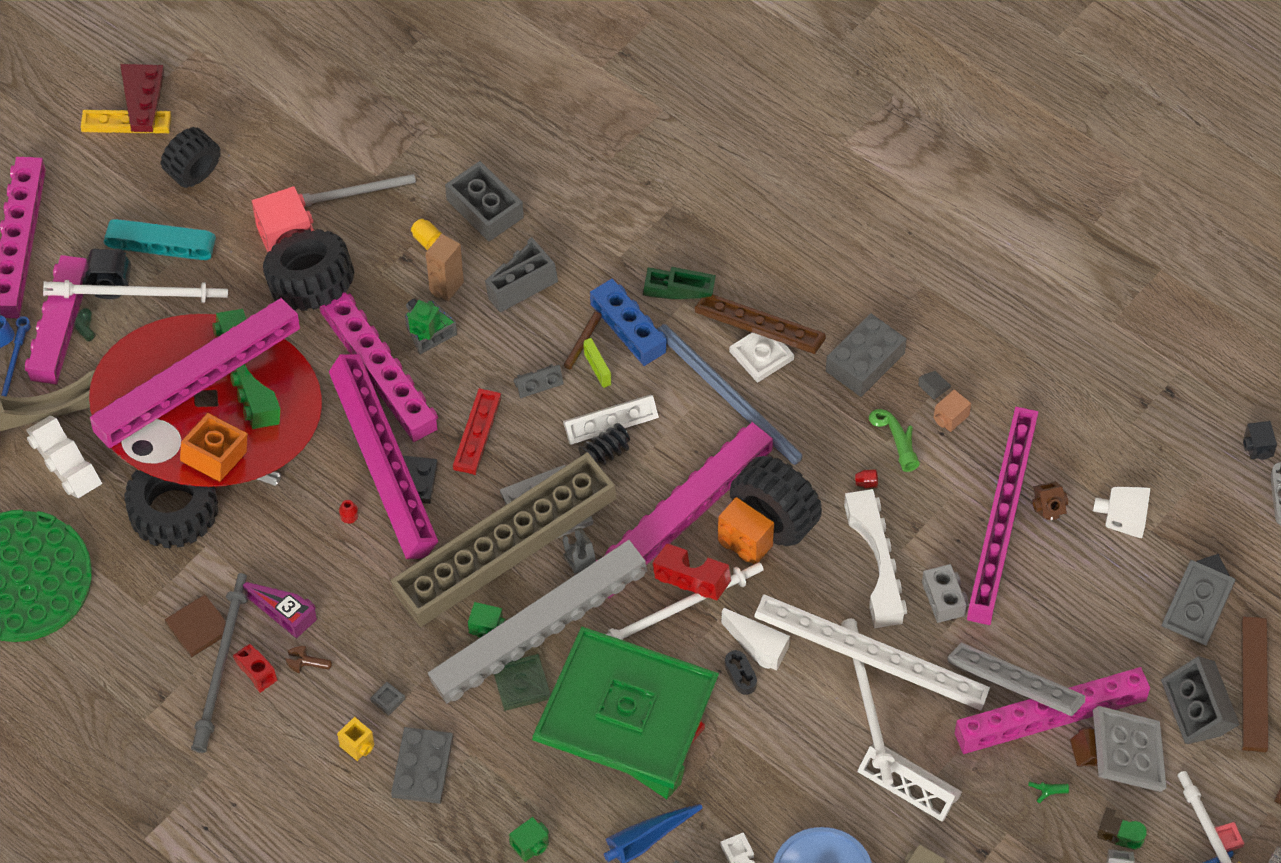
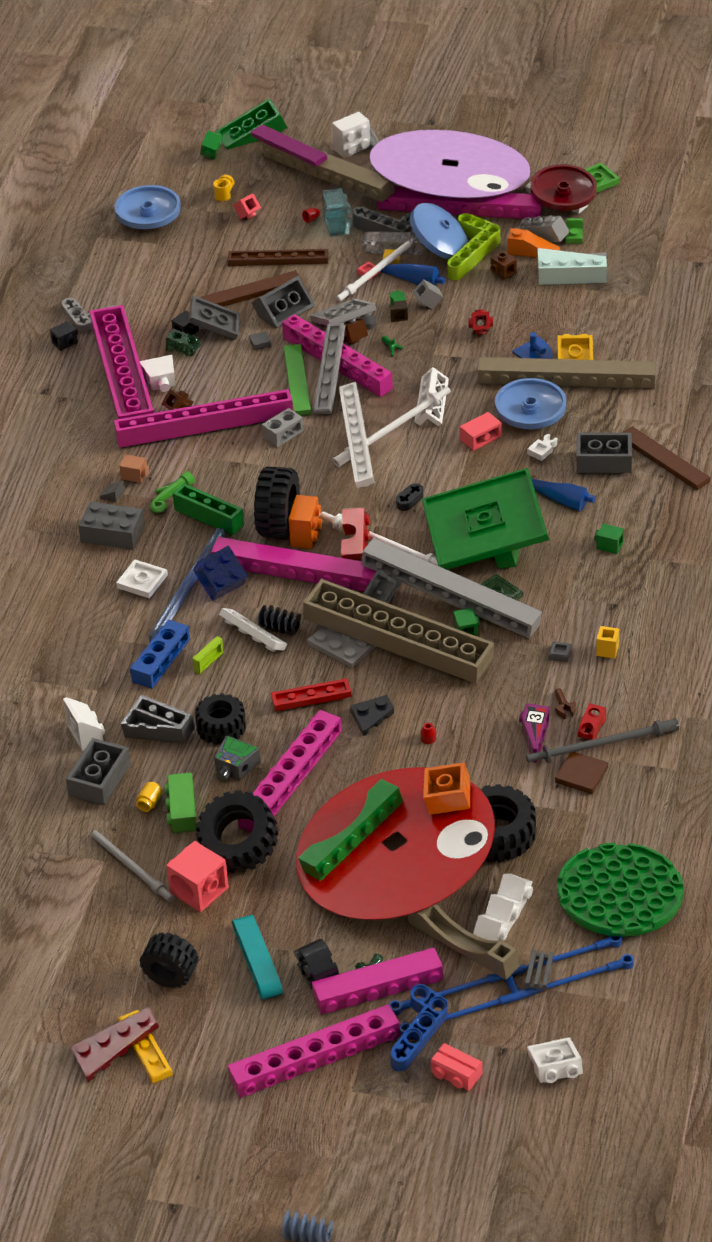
camera: 115 degrees left, 15 degrees down
(68, 289) = (353, 969): white bar -> none
(194, 373) = (388, 832): dark pink brick -> none
(383, 456) = (370, 728): dark pink brick -> none
(396, 257) = (181, 802): none -> bright green brick
(422, 765) = (598, 611): dark grey plate -> none
(424, 320) = (243, 741): green brick -> none
(444, 267) = (185, 751): medium nougat brick -> none
(485, 317) = (220, 717): none -> black tyre
(539, 381) = (248, 685): dark grey hinge -> none
(561, 211) = (82, 722): none -> white slope
(587, 332) = (189, 676): reddish brown bar -> none
(678, 284) = (108, 641): dark green slope -> none
(709, 415) = (220, 573): none -> clear blue brick
(760, 641) = (382, 494): white slope -> none
(761, 323) = (119, 583): reddish brown tile -> none
(810, 800) = (480, 431): none -> coral brick
(835, 450) = (208, 509): none -> green brick
(864, 517) = (304, 451): white arch -> none
(867, 478) = (214, 490): red hose -> none
(1035, 653) = (297, 379): none -> bright green tile
(1112, 788) = (370, 321): none -> dark grey tile
(1141, 648) = (259, 340): none -> dark grey tile
(1166, 469) = (120, 362): none -> dark pink brick
(1176, 557) = (182, 342): none -> clear green leg

